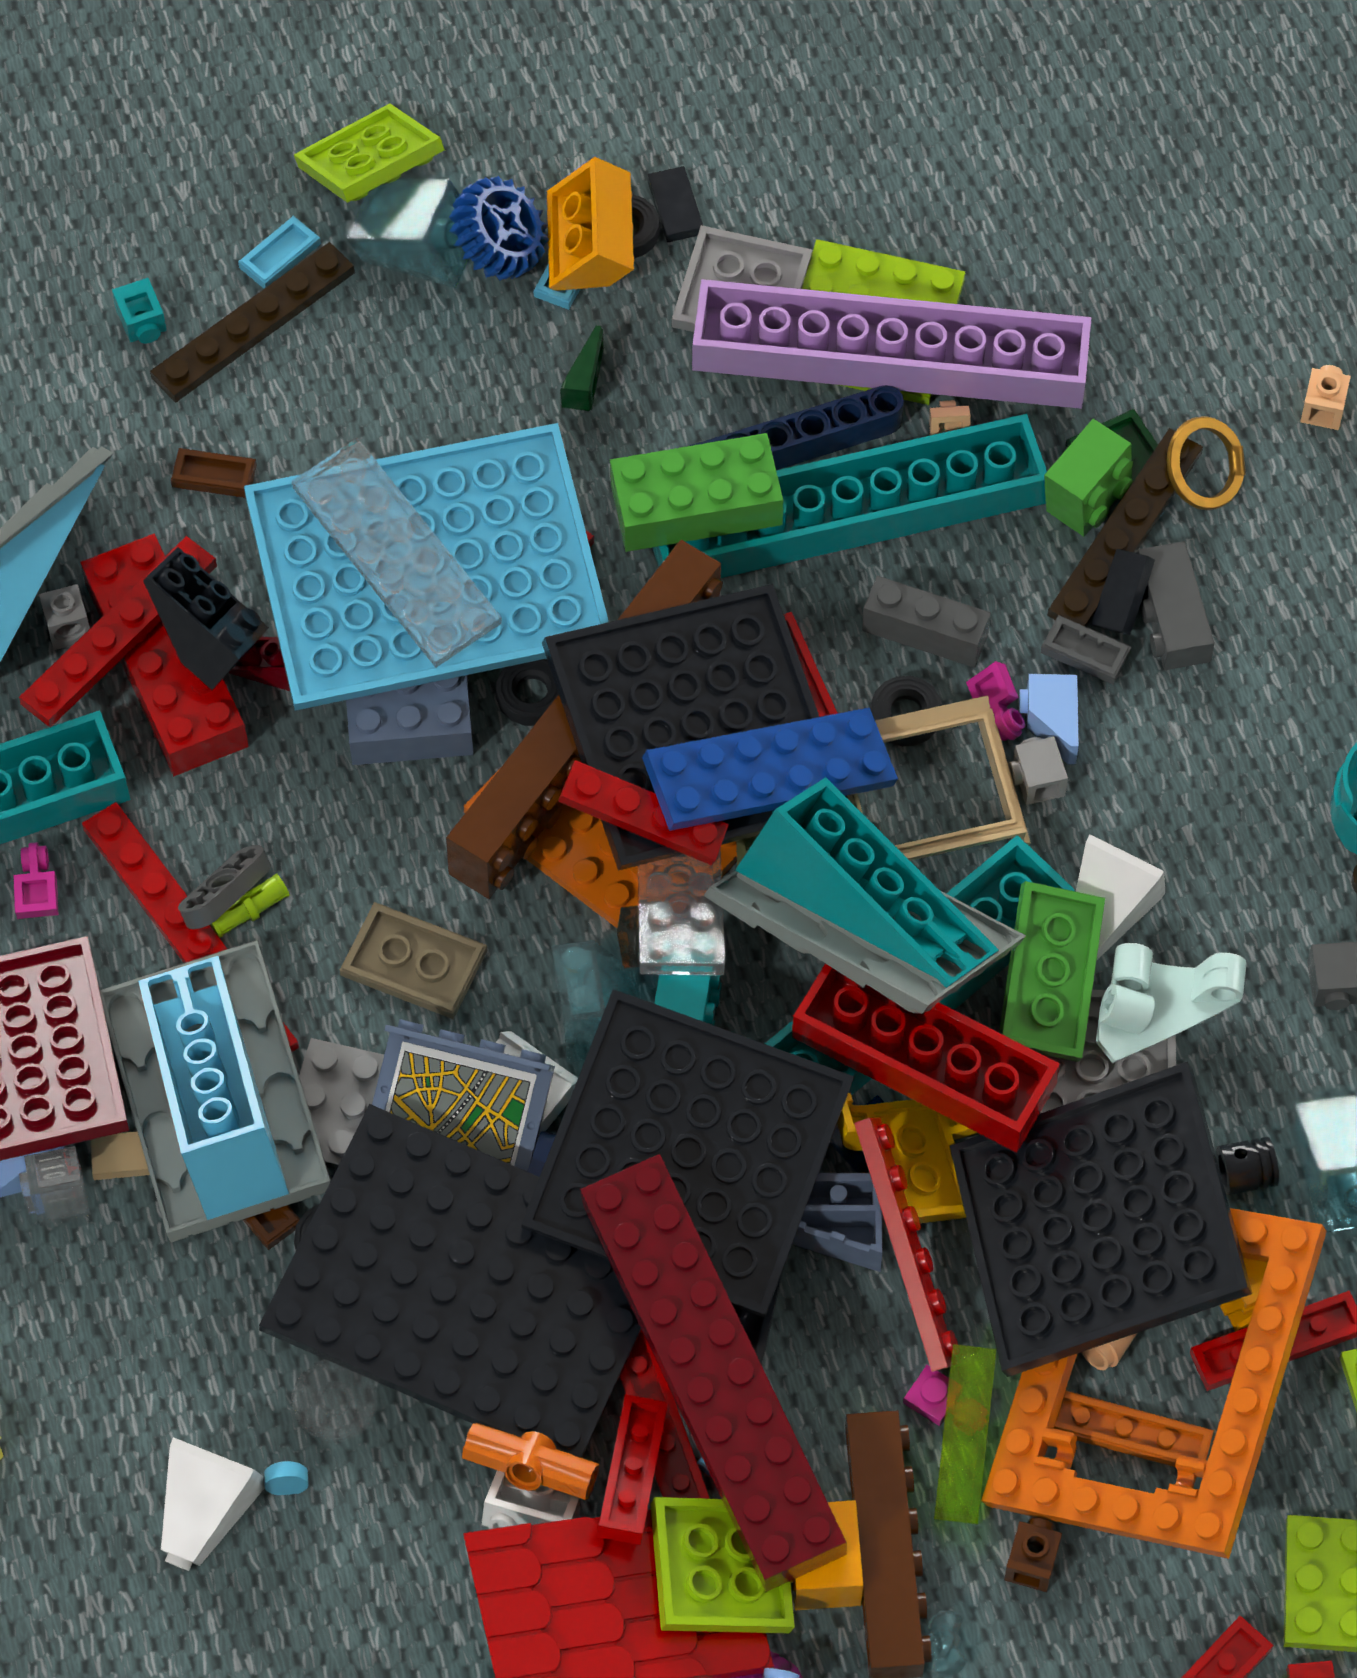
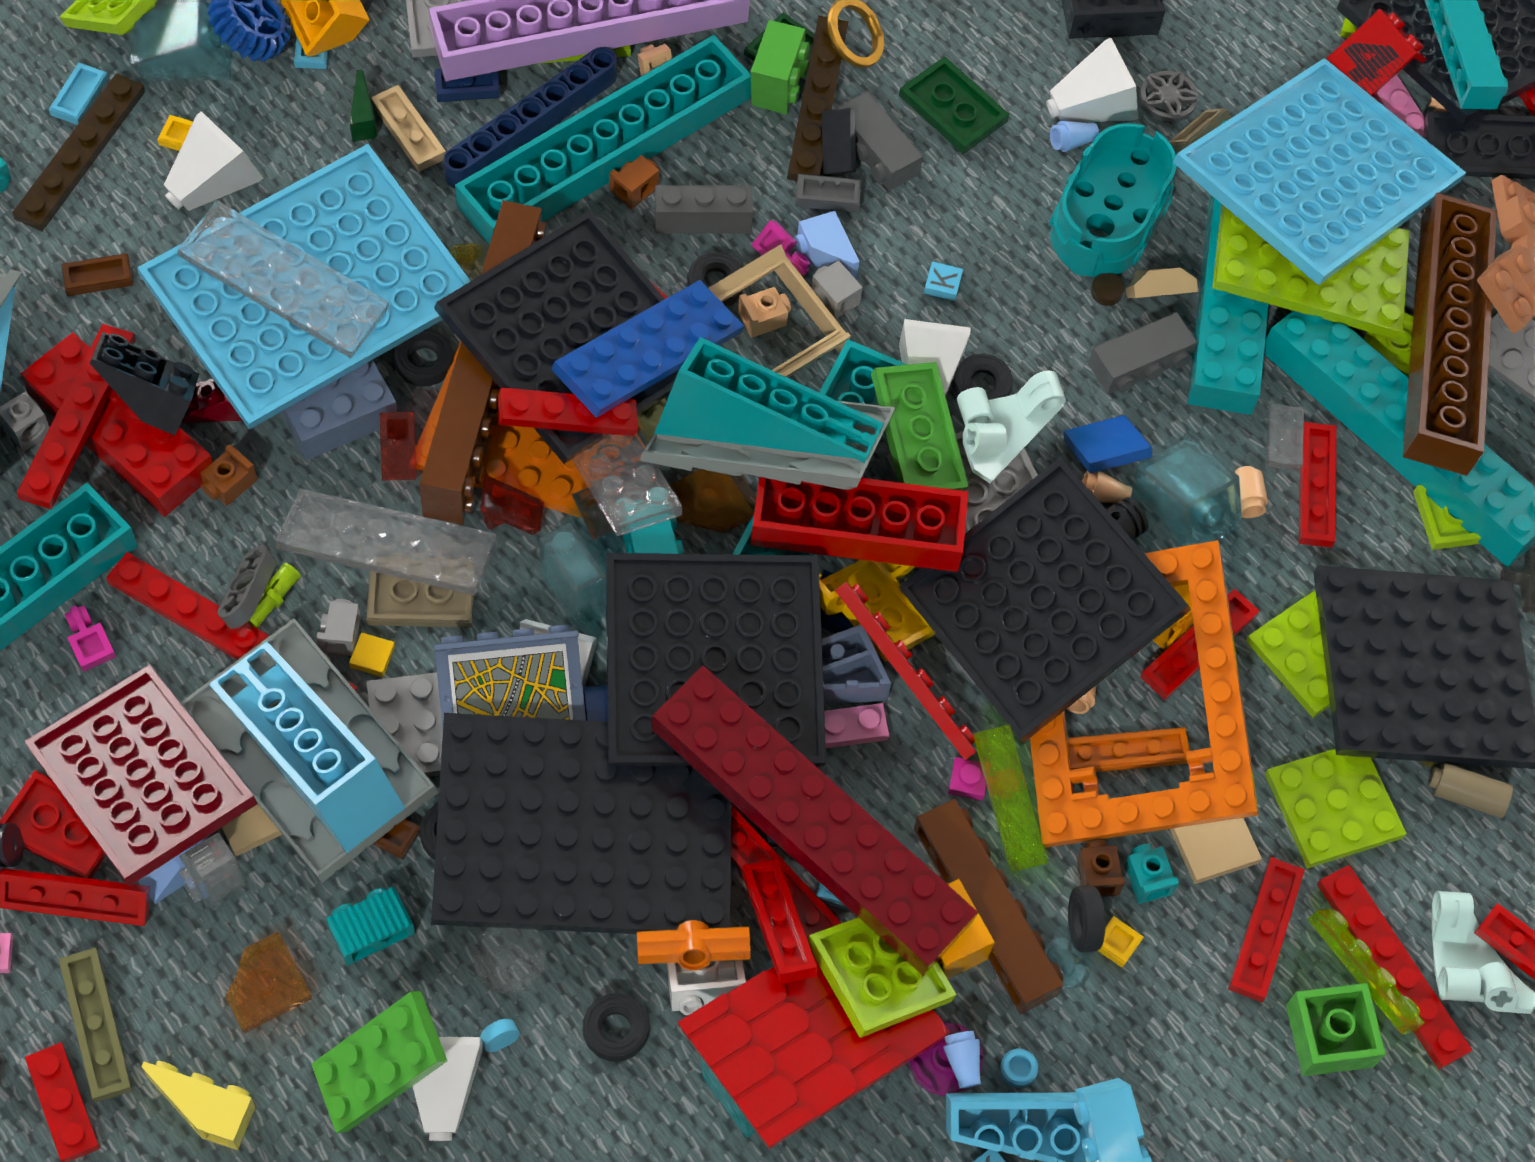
camera: 30 degrees left, 0 degrees up
(66, 1329) = (266, 984): none -> clear orange plate
(140, 1455) = (379, 1062): none -> bright green plate
(200, 1307) = (370, 924): none -> teal brick
(257, 754) = (230, 486): none -> dark orange brick
(306, 969) = (339, 628): none -> light grey brick
(330, 1011) = (372, 654): none -> yellow tile
(370, 336) = (174, 132): none -> yellow tile
(382, 387) = (208, 167): none -> white slope
(397, 889) = (387, 541): none -> clear plate
(415, 1545) = (611, 1005): none -> black tyre
(455, 782) = (398, 445): none -> clear red slope
(550, 896) = (511, 506): none -> clear red slope
(628, 407) = (408, 128): none -> tan plate
(628, 582) = (466, 253): none -> clear yellow slope
(696, 492) = (495, 164): bright green brick -> none
(718, 386) = (468, 88): none -> dark blue plate
(772, 969) = (711, 501): none -> clear orange plate
(825, 1285) = (855, 725): none -> bright pink plate
(862, 560) = (634, 181): none -> dark orange brick
(944, 767) = (764, 311): none -> light nougat brick
(986, 1601) = (1086, 918): none -> black tyre
(1018, 1643) = (1119, 941): none -> yellow tile
(1087, 1594) = (1150, 884): none -> teal brick
(1173, 917) = (984, 364): none -> black tyre
(1176, 802) = (943, 281): none -> medium azure tile
(1184, 1582) = (1216, 848): none -> tan tile
(1250, 1117) = (1105, 487): none -> light nougat cone
(1277, 1065) = (1107, 444): none -> blue tile
(1289, 590) = (954, 105): none -> dark green plate

